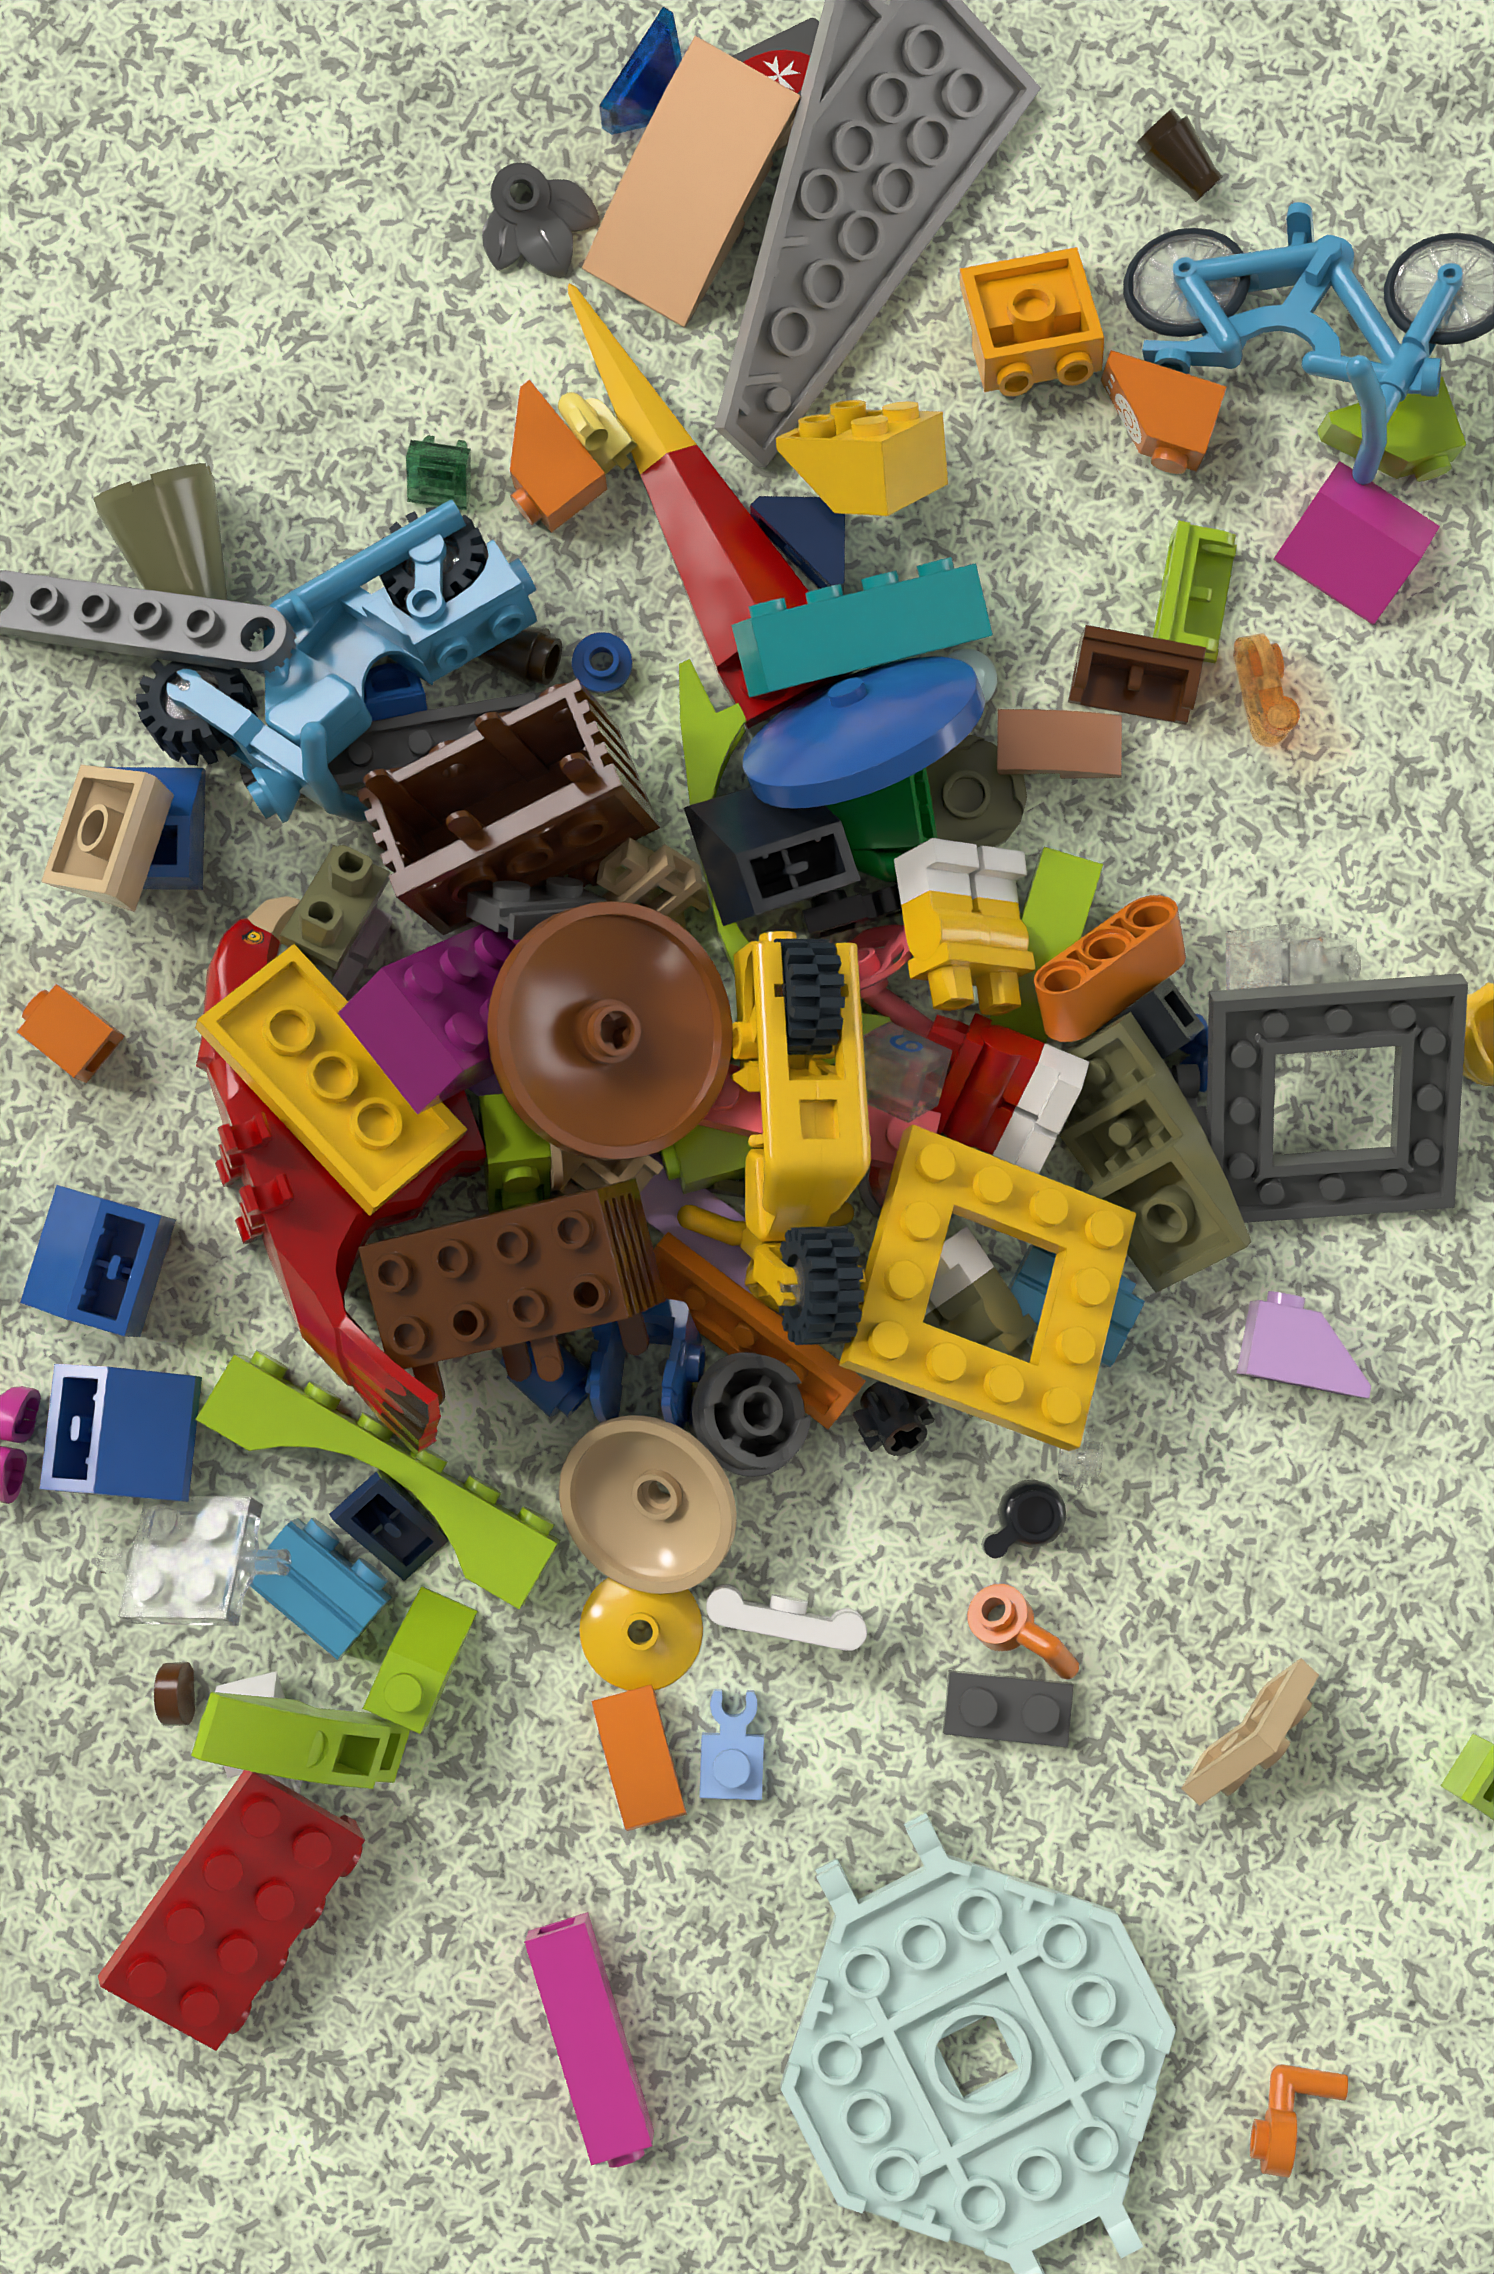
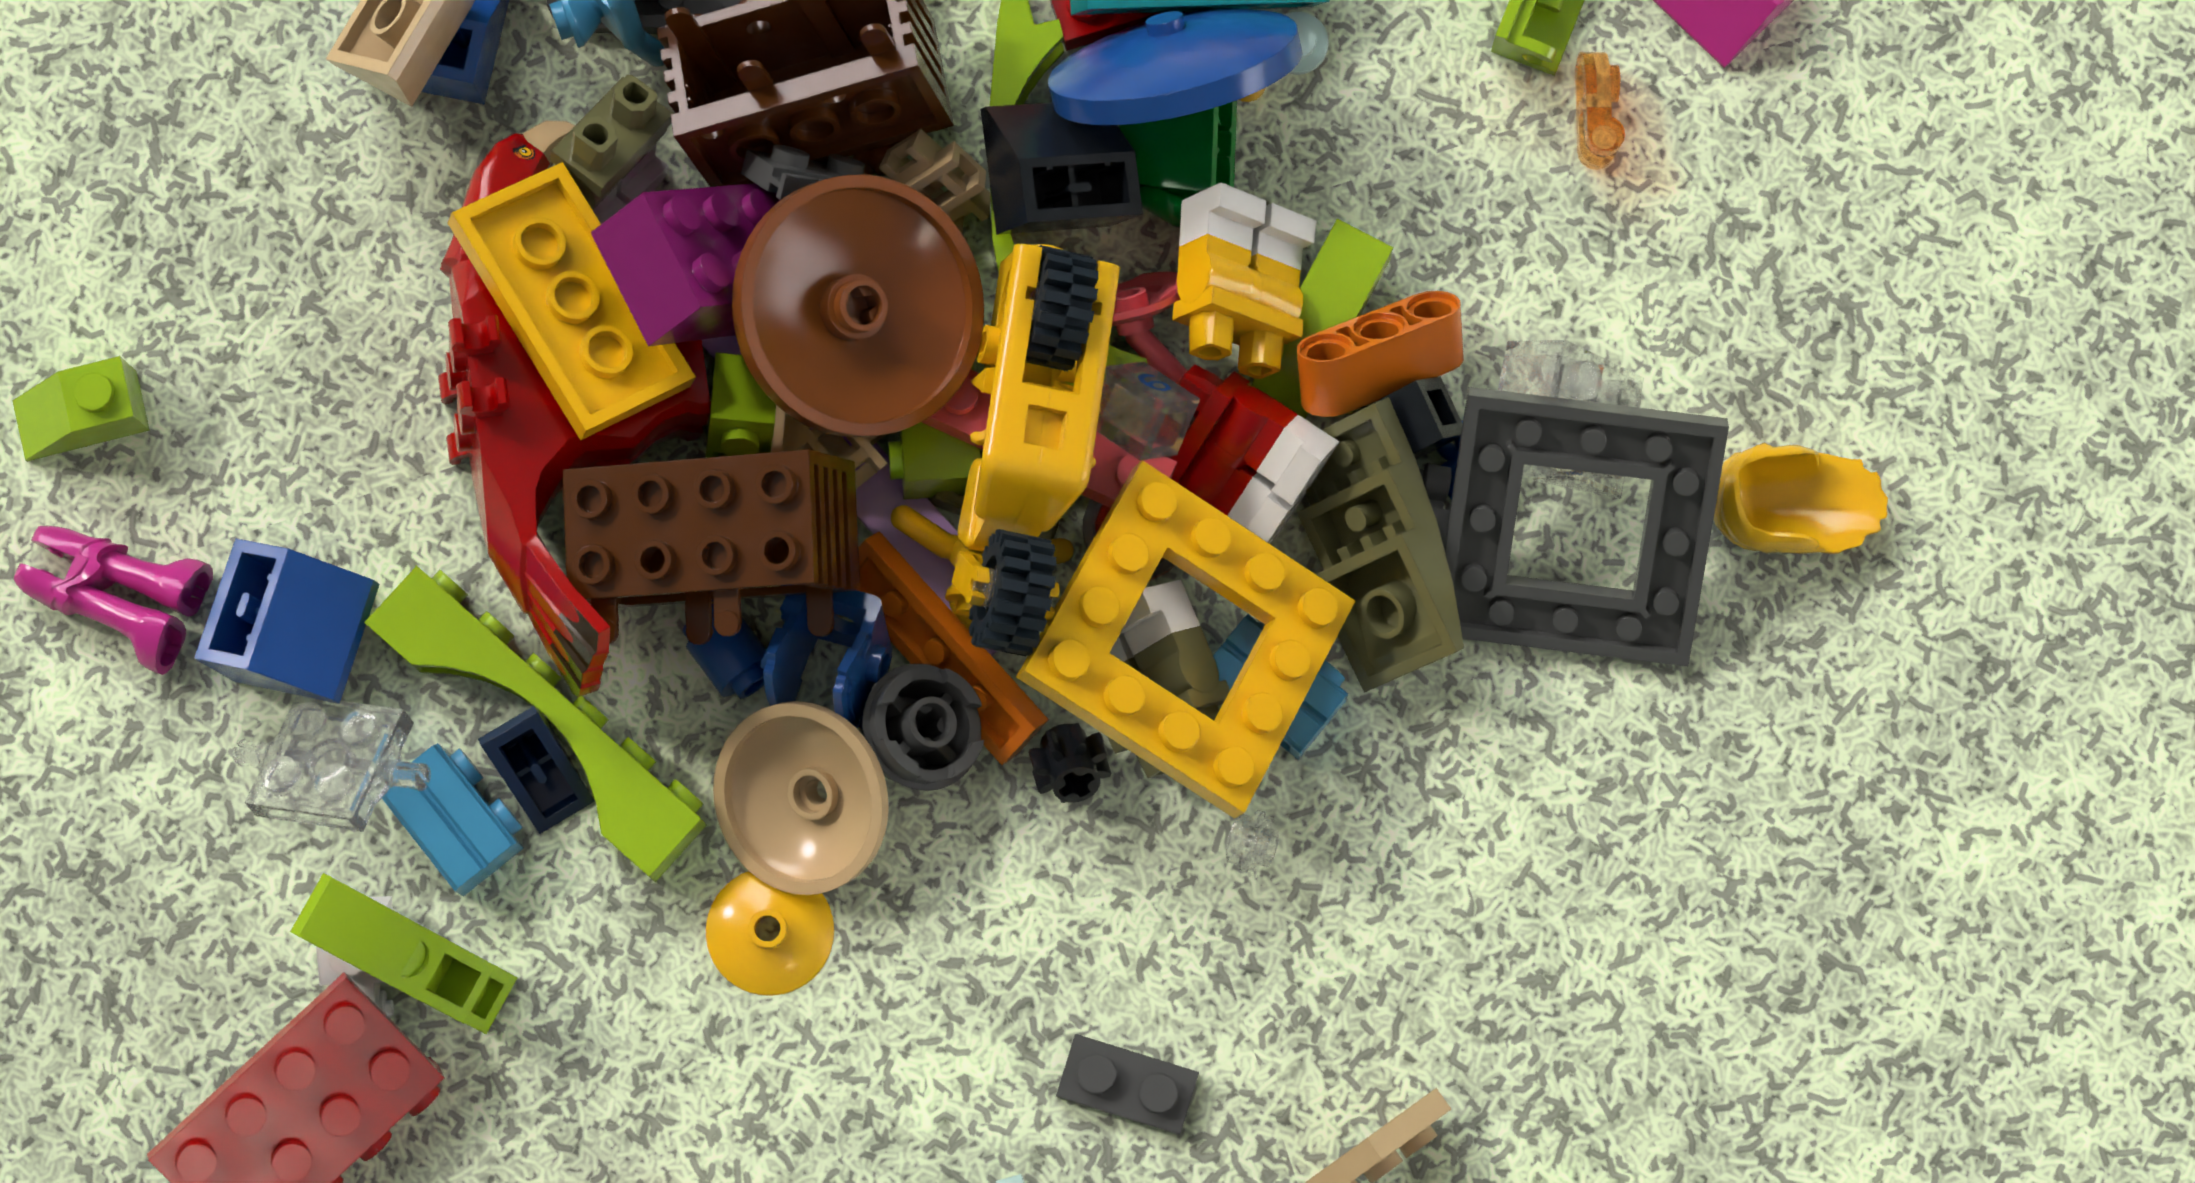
camera: 15 degrees right, 5 degrees down
(69, 1032) = (321, 217): orange brick -> none
(98, 1262) = (301, 449): blue slope -> none
(174, 1694) = (283, 897): reddish brown tile -> none
(420, 1660) = (539, 912): lime slope -> none
(639, 1758) = (740, 1057): orange slope -> none
(732, 1758) = (833, 1079): light blue plate -> none
(786, 1619) = (918, 944): white plate -> none
(837, 913) = (1131, 249): black plate -> none
(960, 808) = (1270, 169): olive tile -> none
(1017, 1628) = (1153, 1000): orange plate -> none
(1029, 1515) = (1189, 894): black piece -> none
(1059, 743) = (1378, 122): nougat slope -> none
(1136, 674) = (1469, 69): reddish brown hinge -> none
(1297, 1348) = (1497, 777): lavender slope -> none

